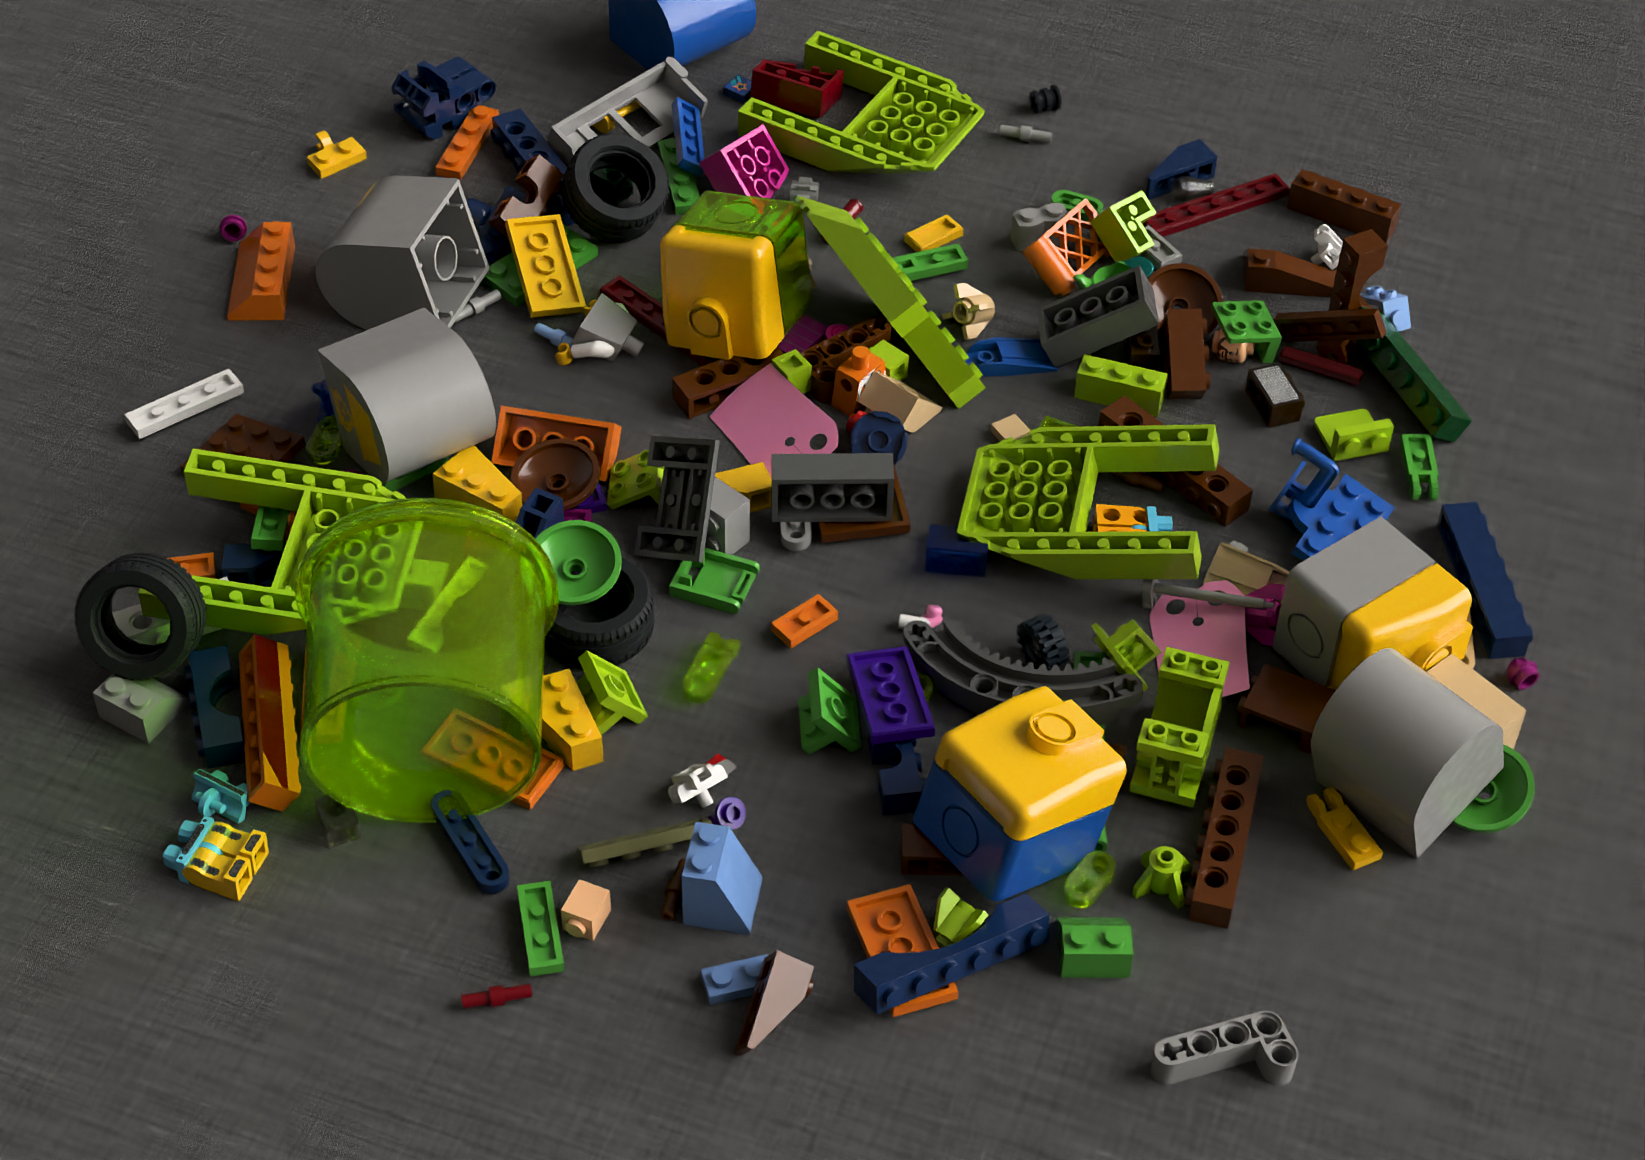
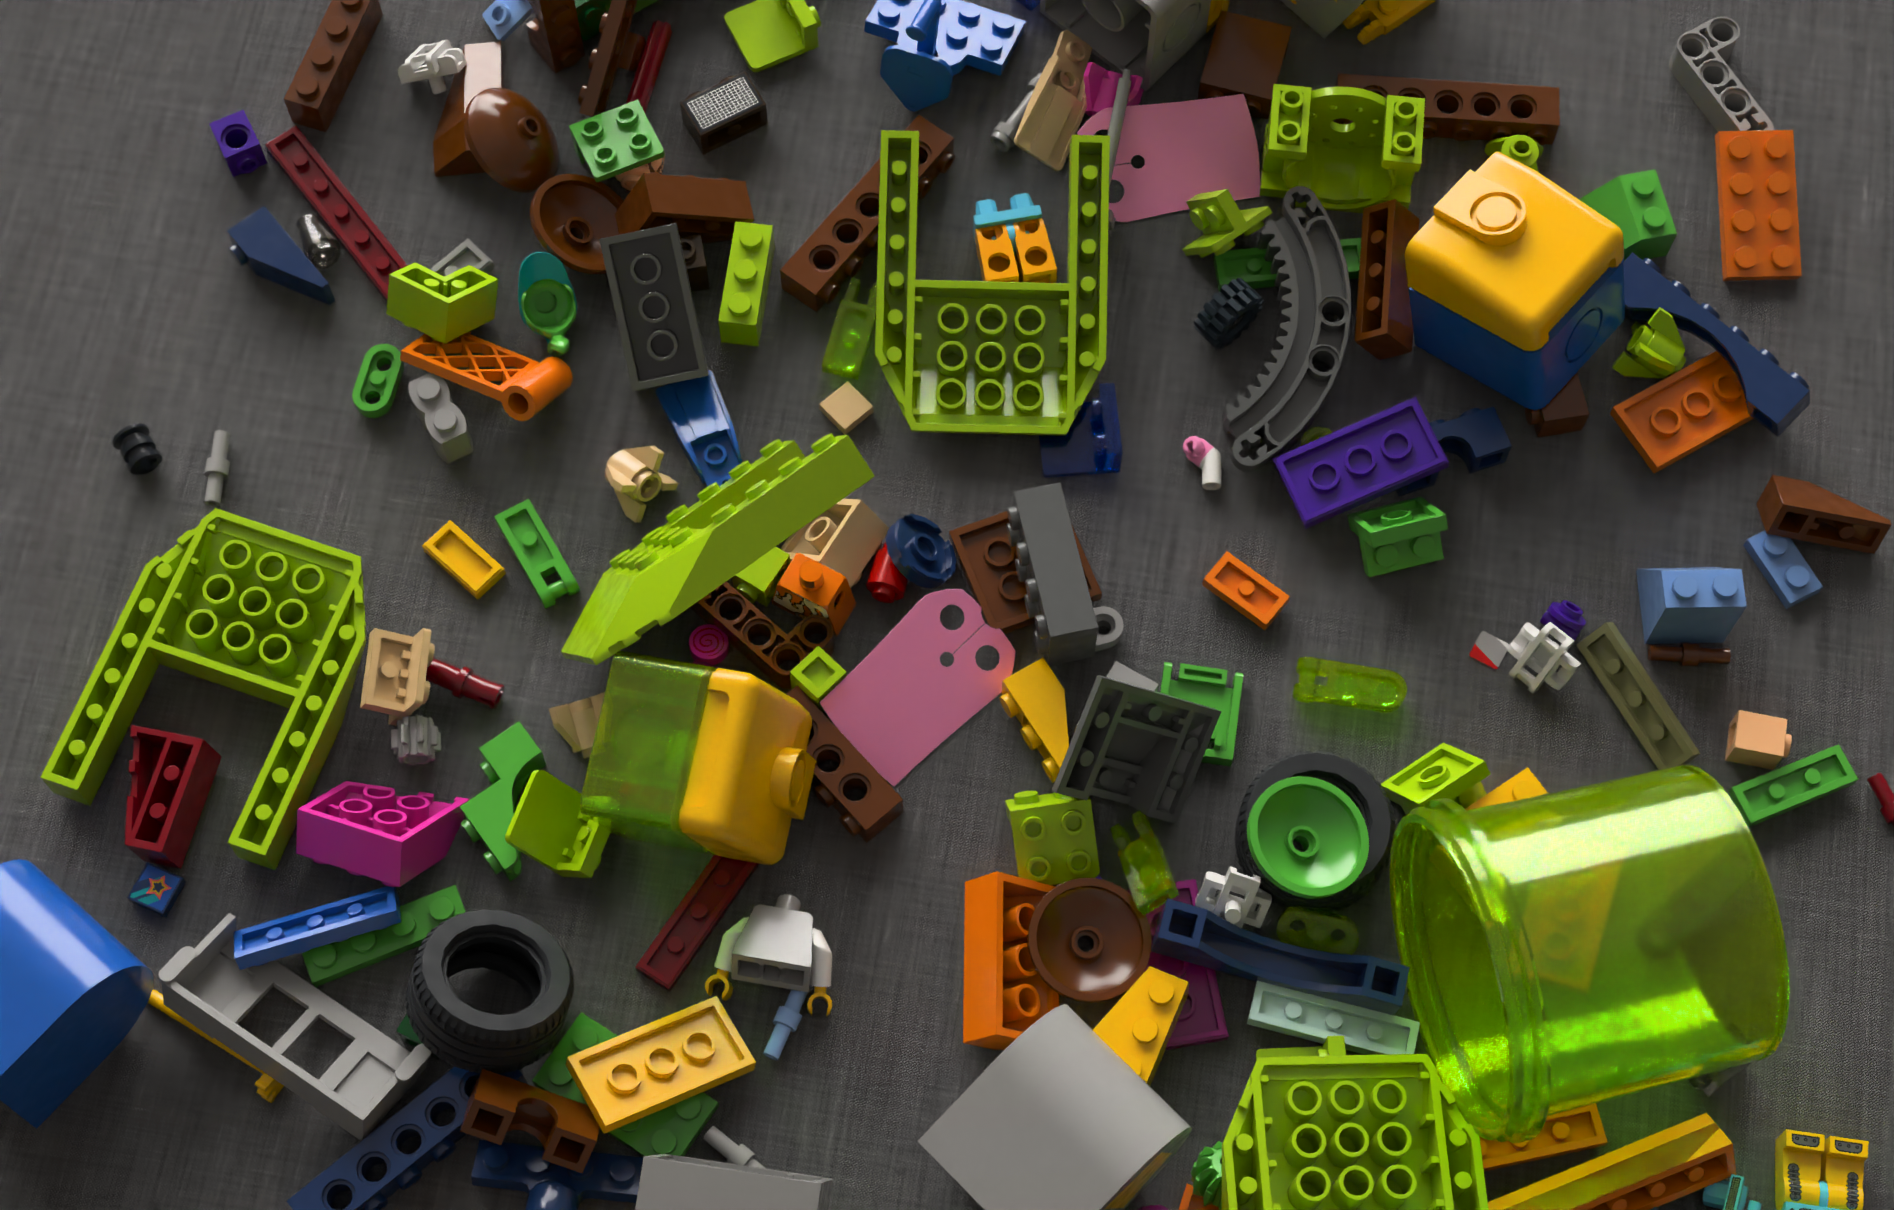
camera: 100 degrees left, 20 degrees up
(602, 513) = (1144, 865): none -> clear neon green hinge
(847, 180) = (396, 673): none -> tan bracket
(1092, 1039) = (1758, 205): none -> orange plate
(1255, 248) = (511, 139): none -> reddish brown dish
(1276, 157) = (236, 131): none -> dark purple brick

